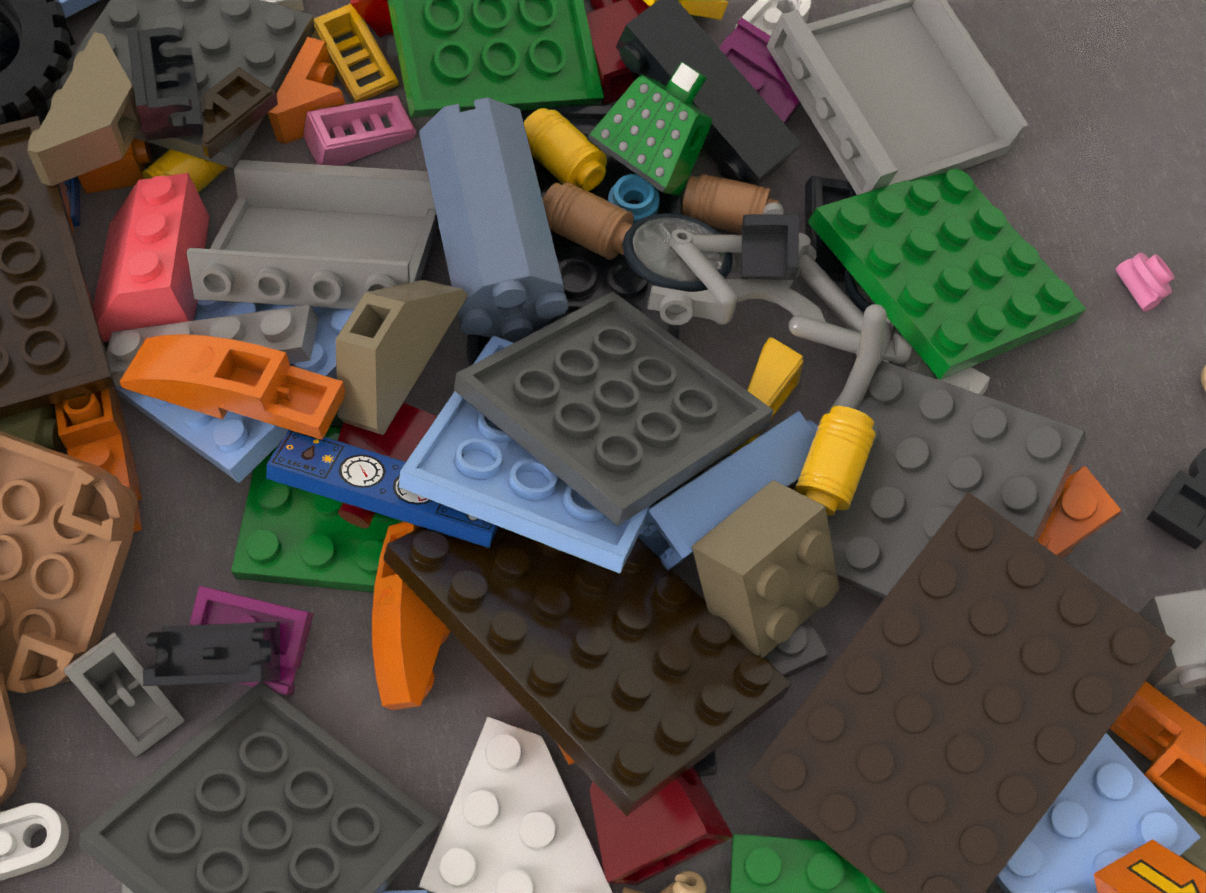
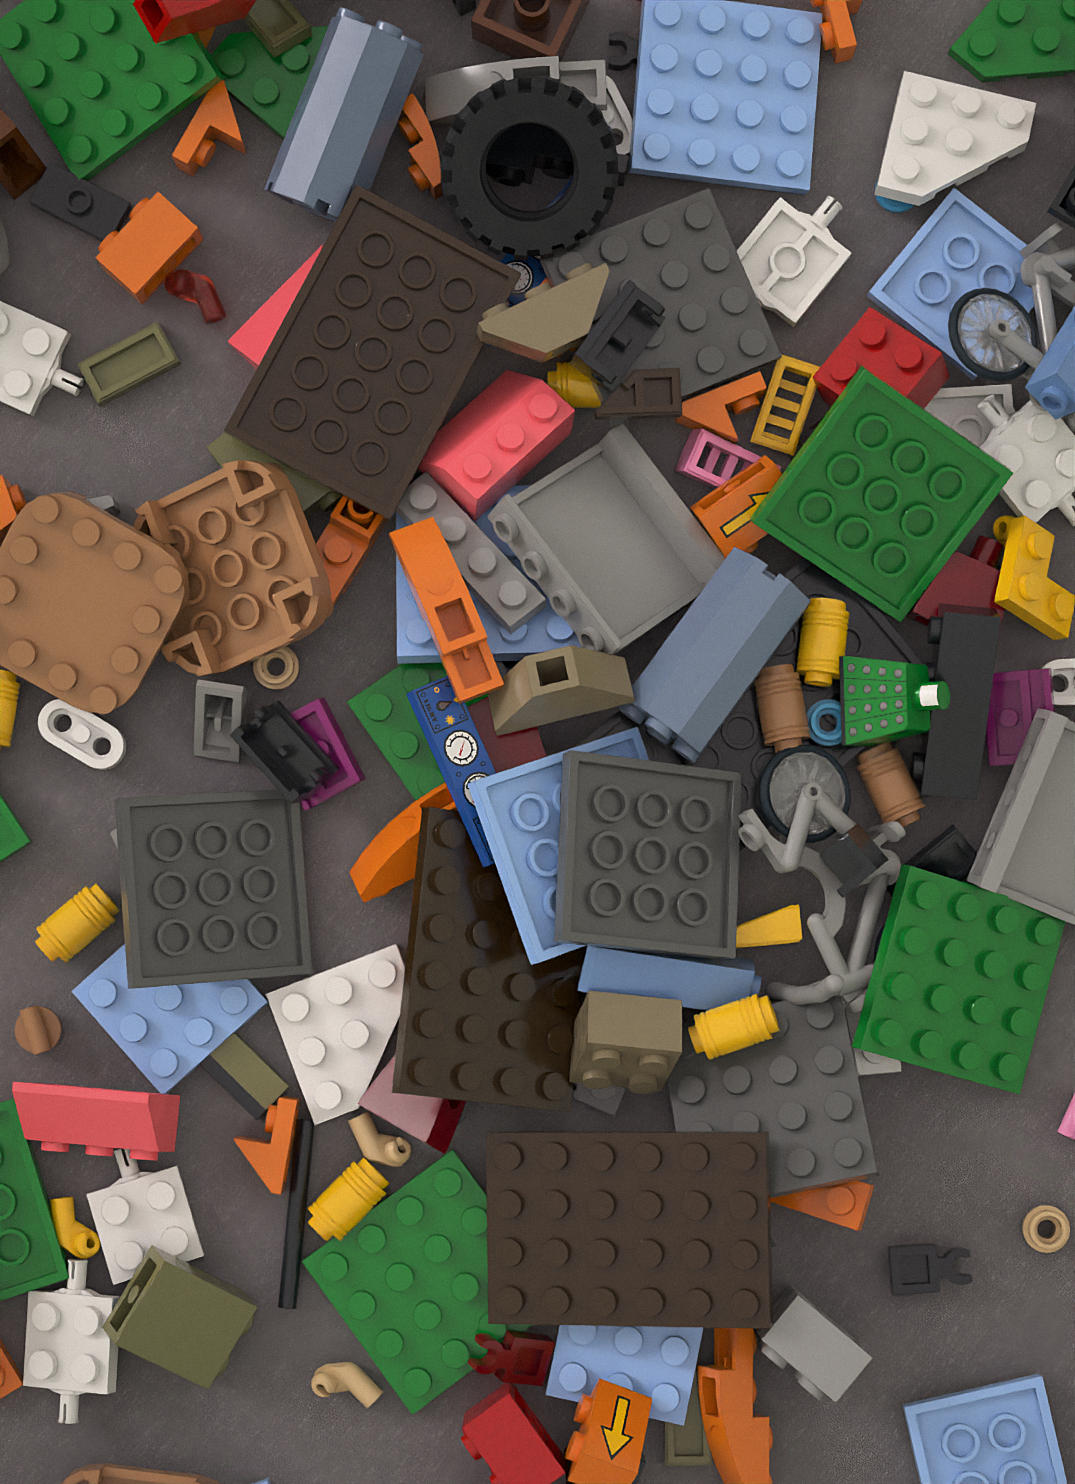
camera: 50 degrees right, 20 degrees up
(127, 598) = (281, 681): none -> tan plate
(391, 134) = (728, 508): none -> orange brick

